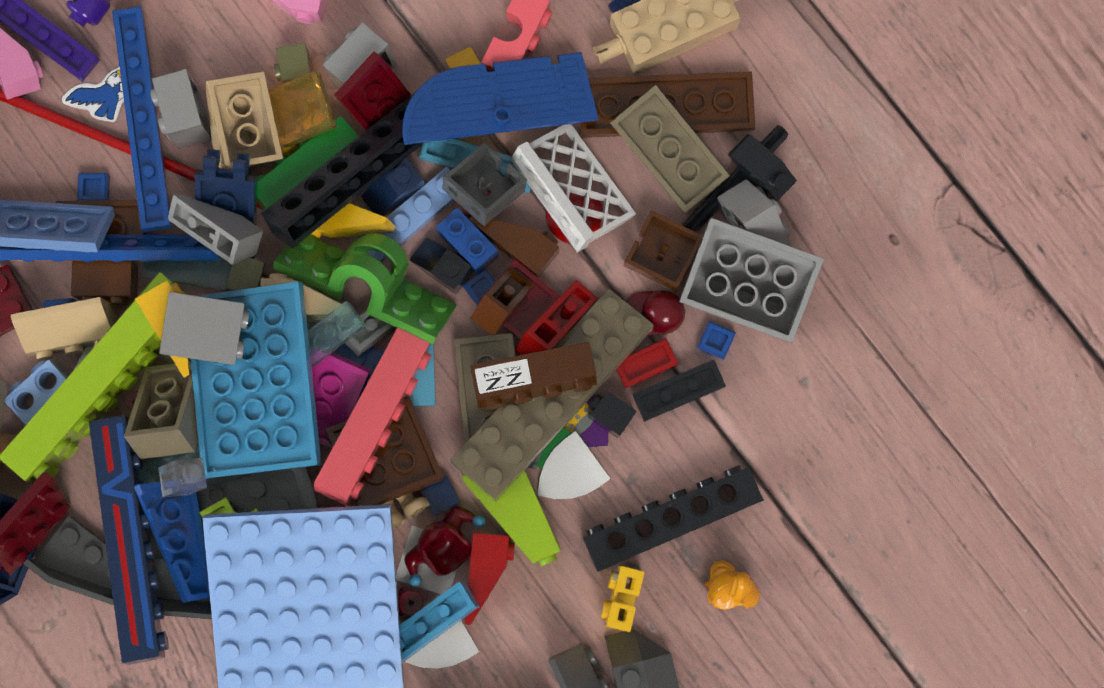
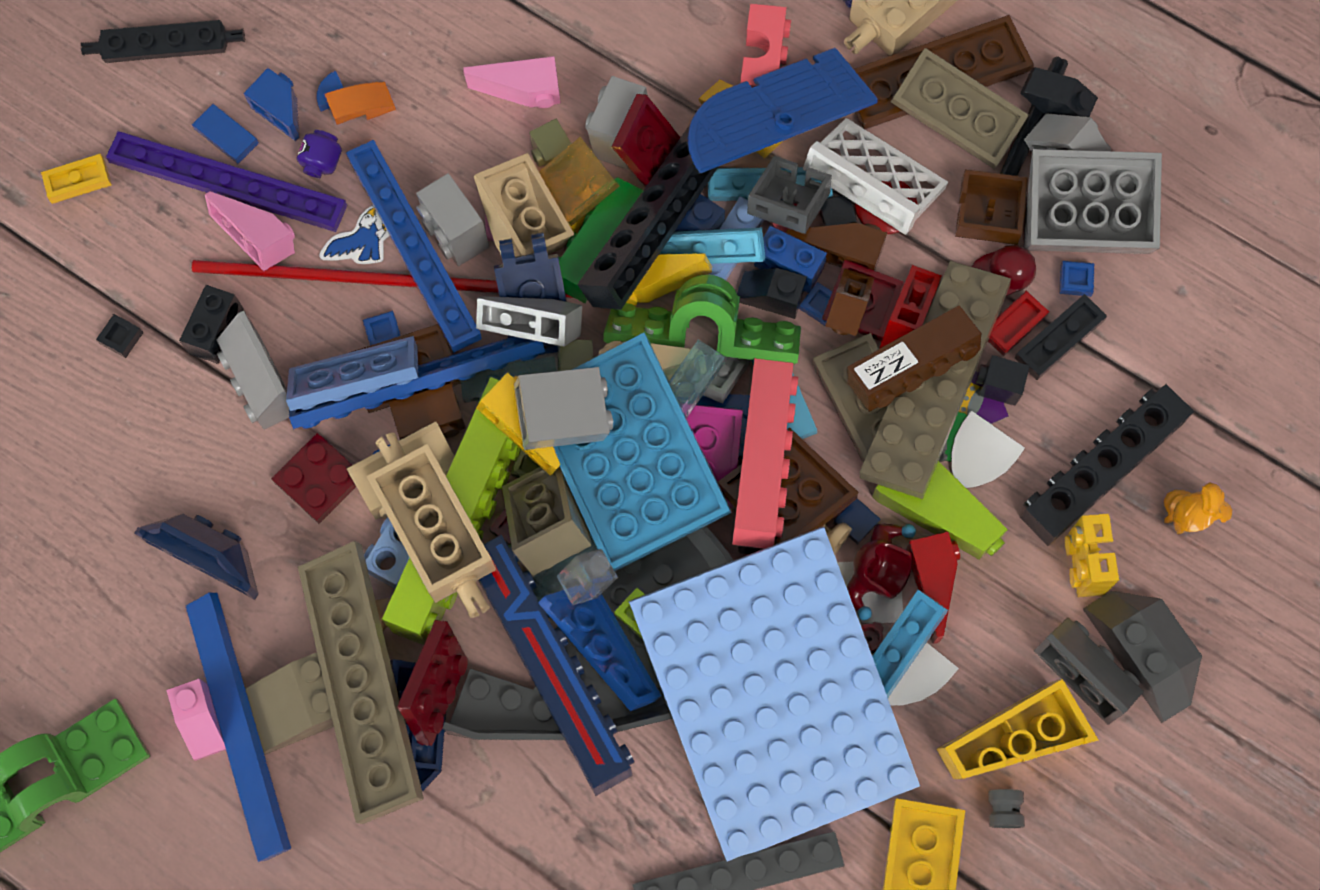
camera: 15 degrees left, 10 degrees down
(60, 392) = (431, 524): none -> tan brick
(403, 211) = (719, 245): none -> medium azure tile
(527, 210) = (837, 211): none -> black tile

